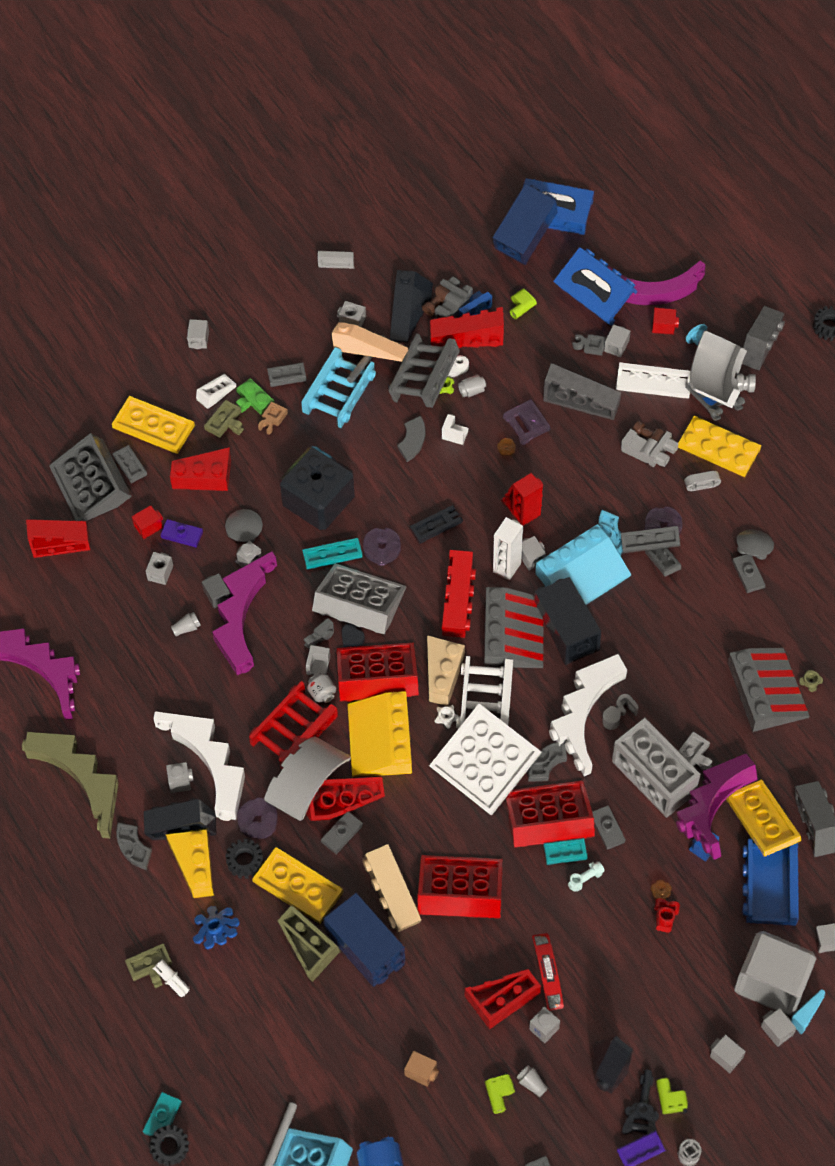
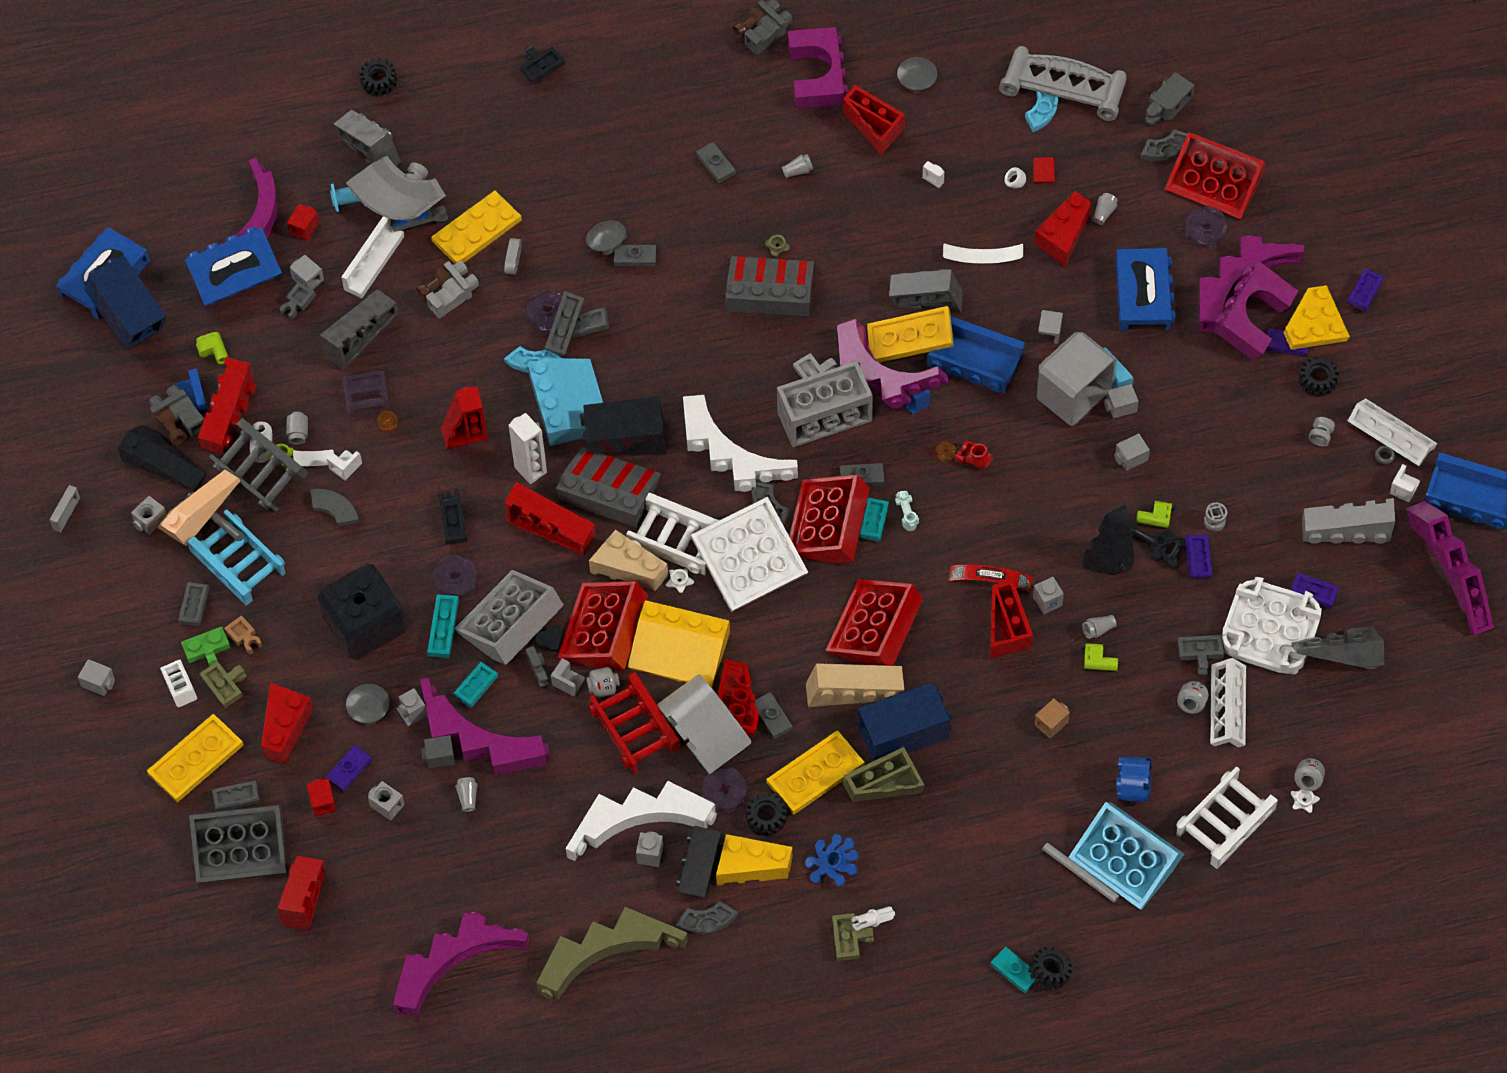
camera: 70 degrees left, 0 degrees up
(287, 596) = (475, 684): none -> teal plate
(451, 407) = (312, 458): none -> white sticker
(612, 715) = (745, 427): light grey leg -> none

